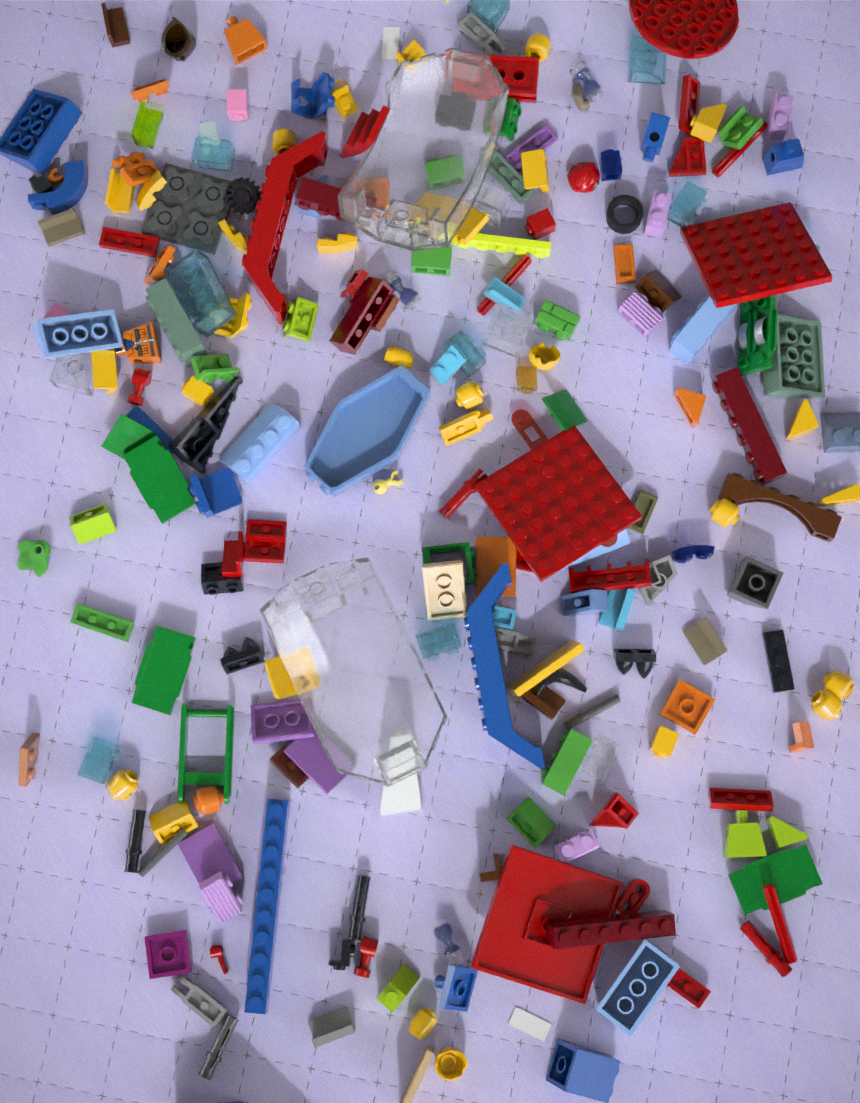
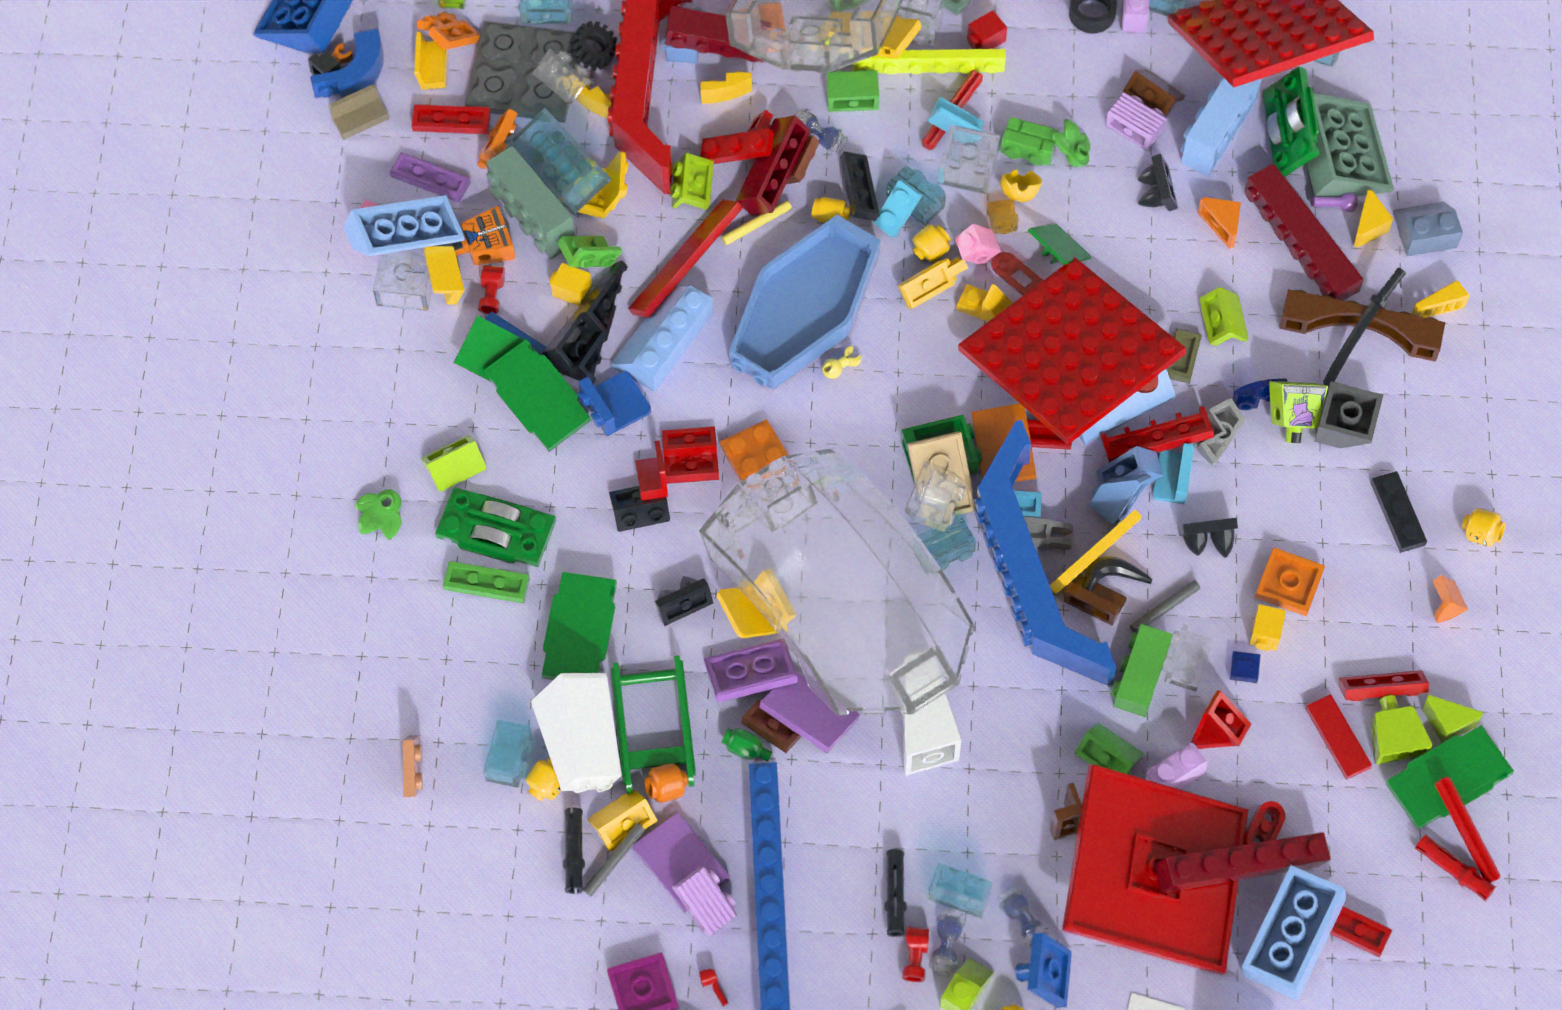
camera: 10 degrees left, 15 degrees down
(108, 287) = (430, 177): none -> medium lavender tile
(116, 578) = (495, 527): none -> green piece
(146, 197) = (465, 61): yellow slope -> none
(149, 757) = (579, 731): none -> white slope
(215, 219) = (562, 75): none -> clear bracket
(269, 777) = (745, 745): none -> green plant
(285, 381) = (685, 258): none -> red tile
(313, 547) = (752, 449): none -> orange plate
(337, 296) = (738, 146): none -> red plate
(342, 358) = (755, 223): none -> light yellow bar
(348, 951) = (890, 950): black bracket -> none
(392, 943) = (949, 929): none -> clear piece
(404, 916) = (960, 890): none -> clear light blue brick
(423, 340) = (859, 186): none -> black plate
(435, 610) = (935, 496): none -> clear brick
(462, 494) = (943, 363): red pin -> none
(501, 449) = (982, 303): none -> yellow slope
(503, 402) = (977, 244): none -> bright pink brick
(571, 623) = (1118, 496): none -> medium blue slope
(589, 327) = (1073, 144): none -> bright green plate
(624, 263) = (1103, 66): orange tile -> none
(642, 768) = (1245, 667): none -> clear blue tile
(650, 377) = (1164, 193): none -> black tile
(677, 485) = (1223, 316): none -> lime panel
(700, 833) = (1338, 737): none -> red tile
(705, 641) = (1298, 498): dark tan panel -> none
(717, 569) = (1296, 406): none -> lime torso
(724, 512) = (1292, 339): yellow head -> none
(786, 402) = (1346, 202): none -> medium lavender bar
(794, 494) = (1377, 302): none -> black sword
(826, 705) = (1473, 553): yellow head -> none

